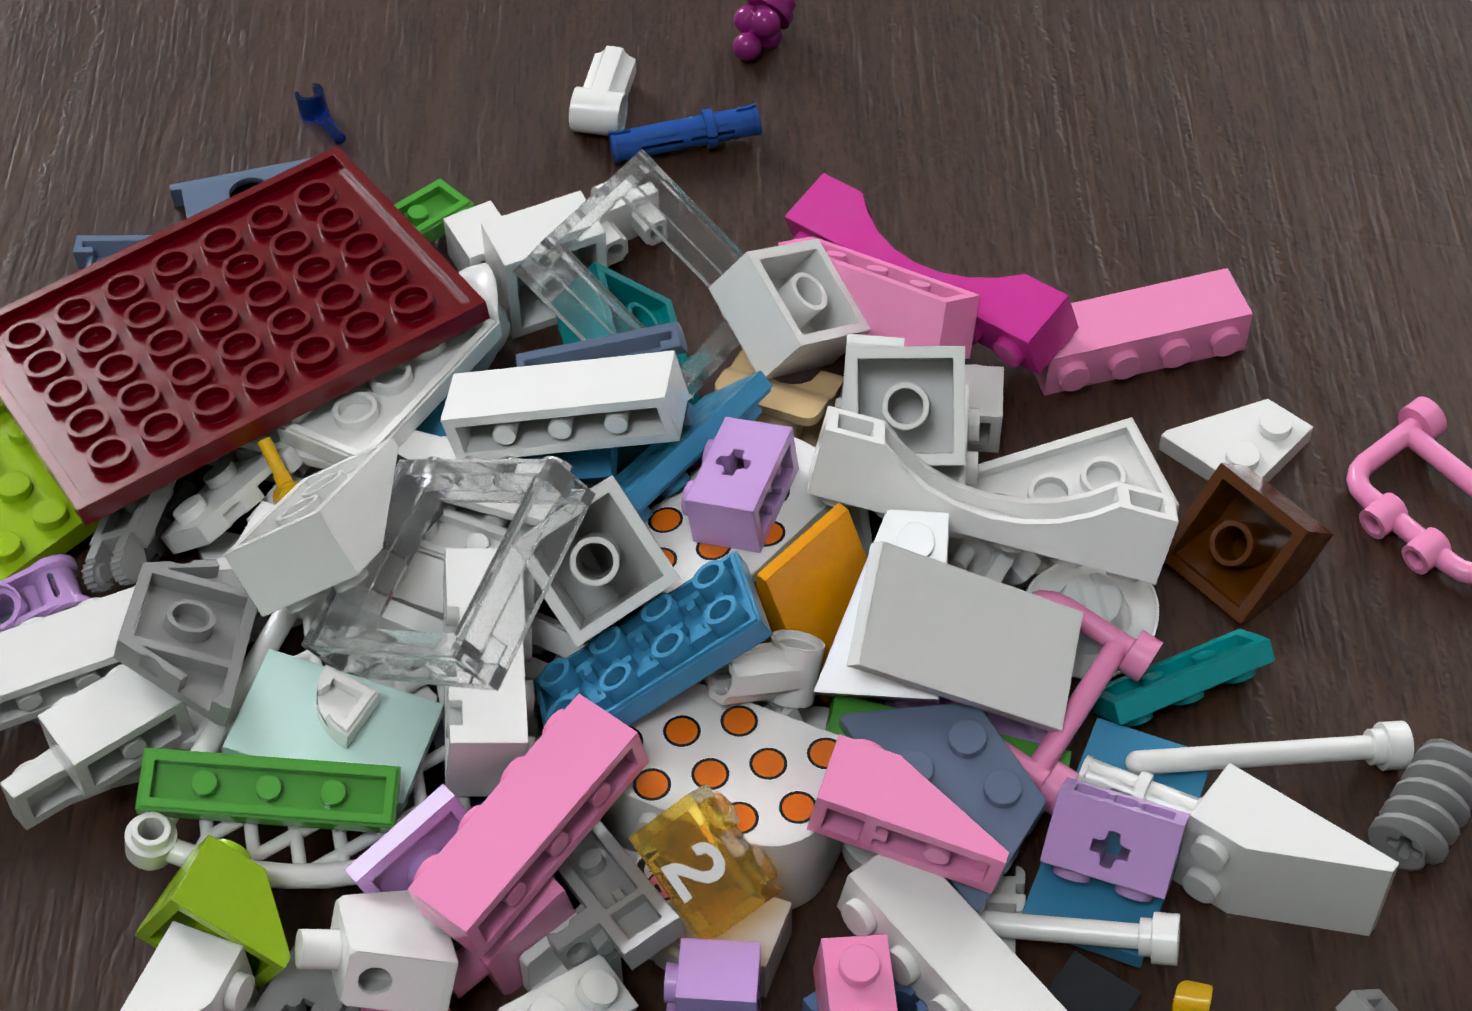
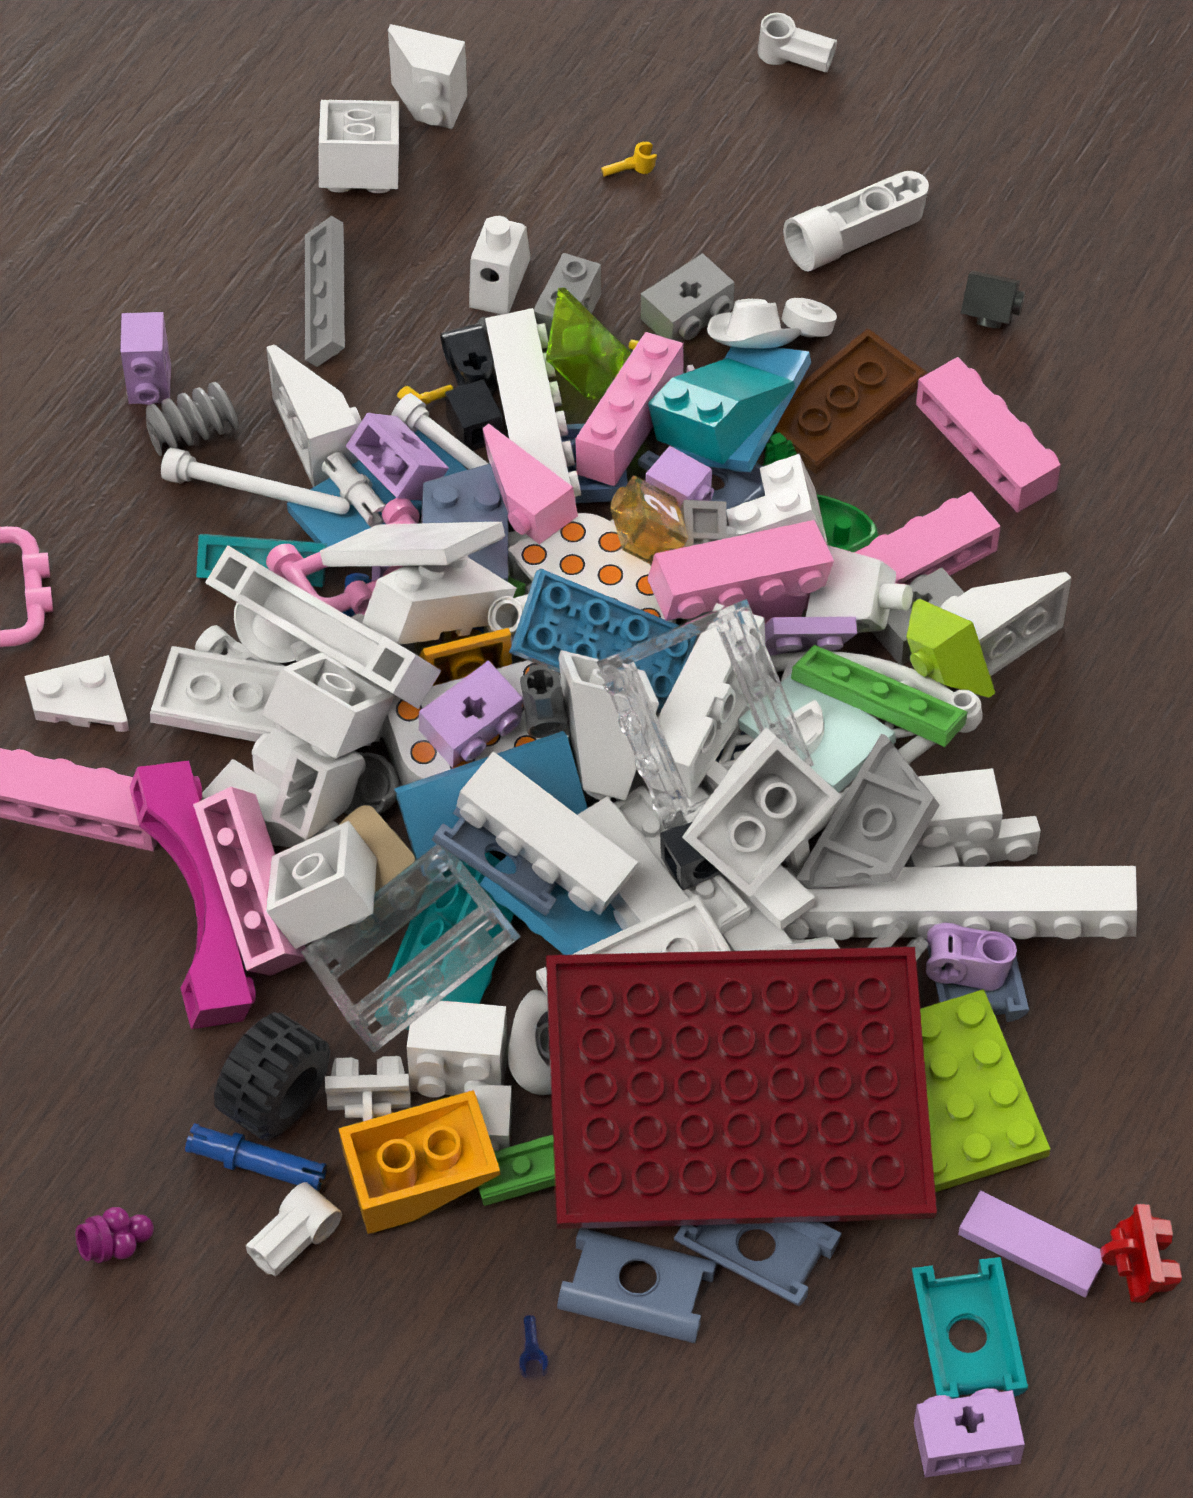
camera: 150 degrees left, 5 degrees up
(280, 475) = (755, 930): yellow hand -> none
(523, 156) = (417, 1159): none -> light orange slope
(661, 502) = (543, 701): none -> dark grey piece
(710, 149) = (272, 1076): none -> black tyre
(1244, 542) = (142, 615): reddish brown slope -> none

